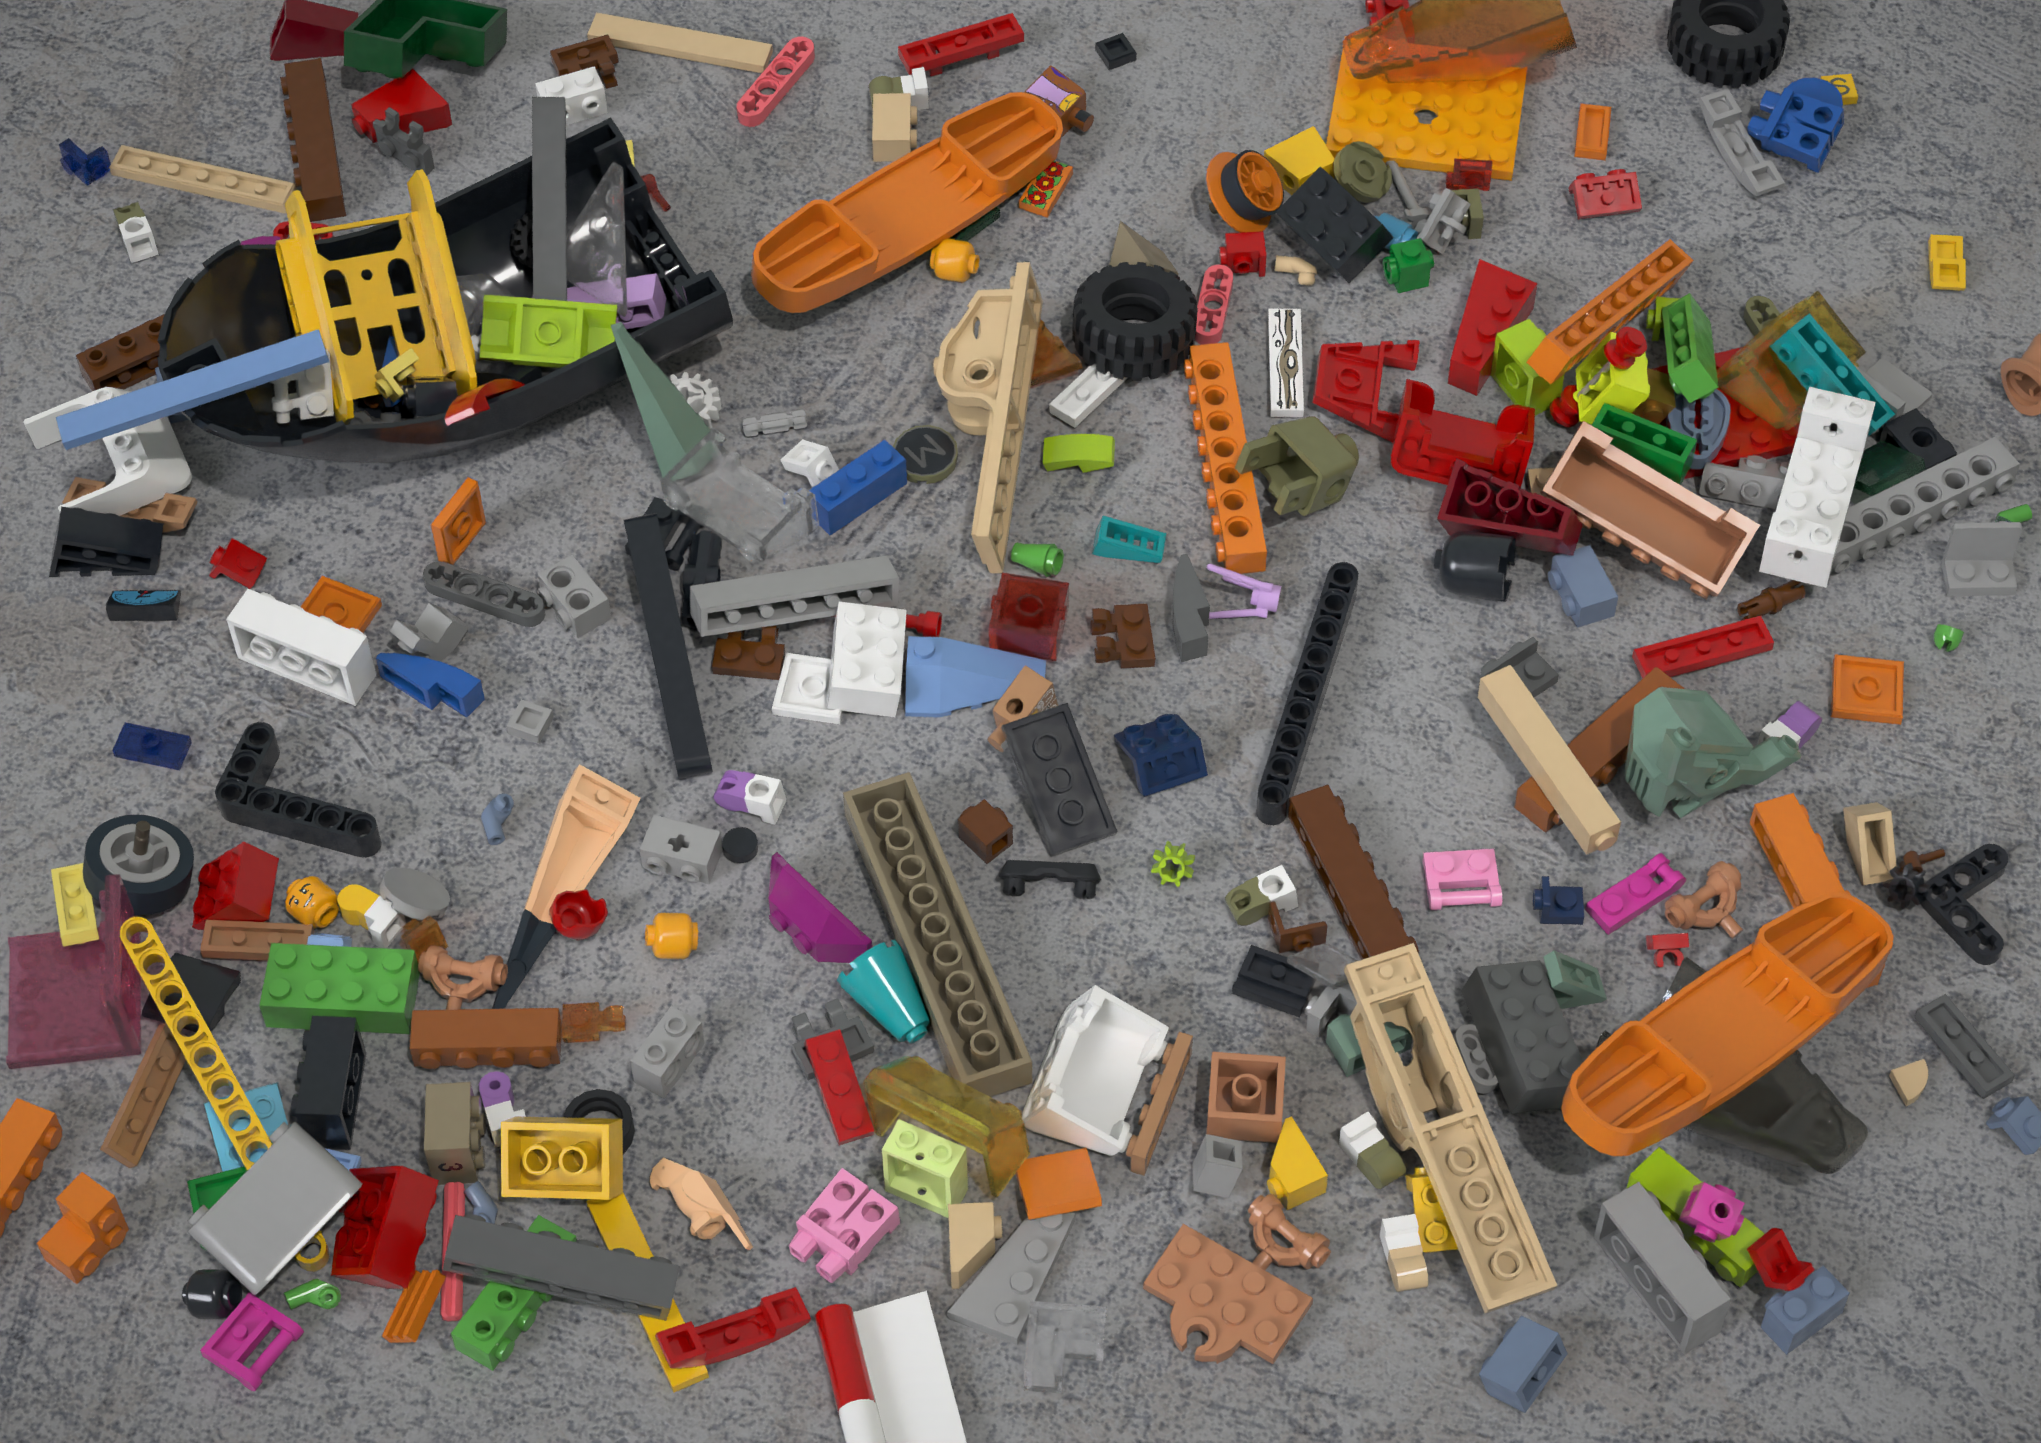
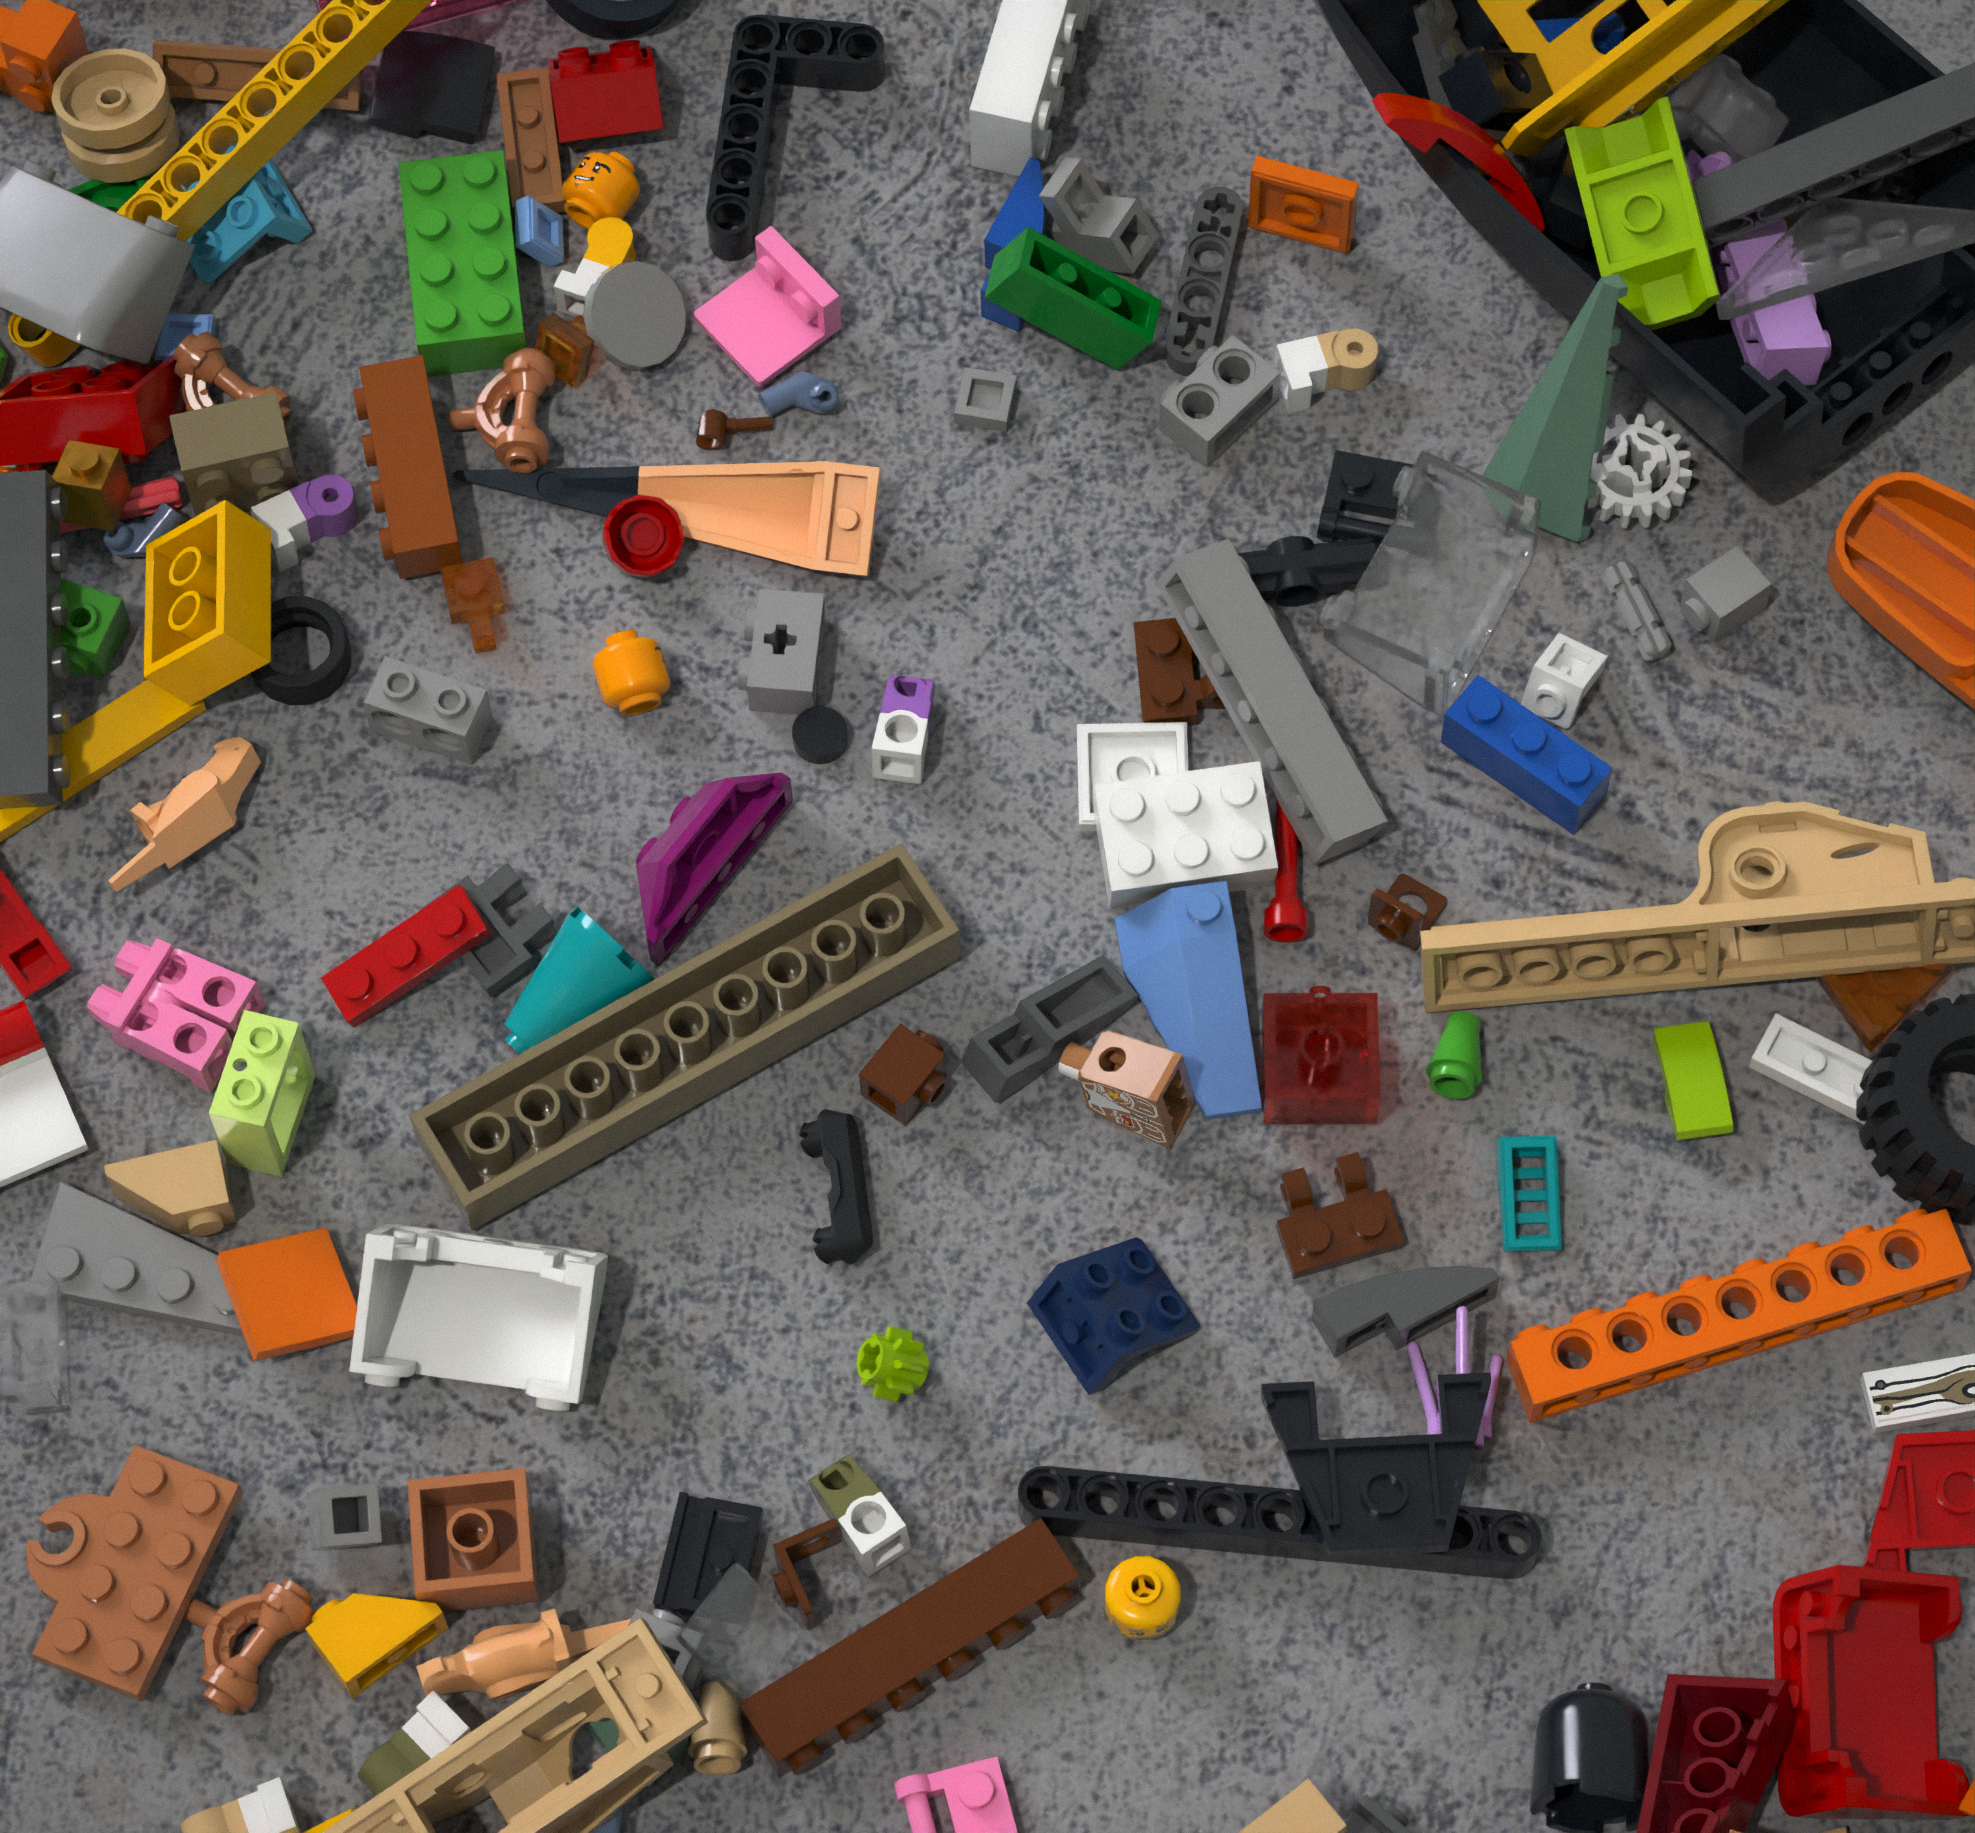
camera: 80 degrees right, 10 degrees up
(156, 1177) = (116, 115): none -> tan wheel
(330, 1080) = (293, 285): black brick -> none
(342, 604) = (1121, 95): orange tile -> none
(369, 1151) = (202, 363): none -> nougat piece
(398, 368) = (1531, 33): light yellow bracket -> none
(432, 819) = (772, 311): none -> bright pink bracket
(440, 1213) = (93, 484): none -> pearl gold brick
(490, 646) = (1072, 298): none -> green brick
(506, 869) = (715, 425): none -> reddish brown hand
(565, 536) = (1325, 363): none -> leg
(668, 646) = (1146, 543): black beam -> none
(779, 376) = (1724, 594): none -> light grey brick
(928, 452) = (1632, 847): black tile -> none
(946, 567) = (1399, 921): none -> reddish brown bracket
(952, 1109) = (328, 1096): clear yellow windscreen -> none
(972, 754) = (1044, 1024): none -> dark grey slope
(1059, 779) = (1008, 1160): black tile -> none
(1164, 1090) = (434, 1417): medium nougat plate -> none
(1307, 474) = (1733, 1443): olive piece -> none
(1308, 627) = (1381, 1490): none -> black wing
(1320, 1088) = (513, 1657): none -> light nougat animal
(1343, 761) = (1141, 1616): none -> yellow head

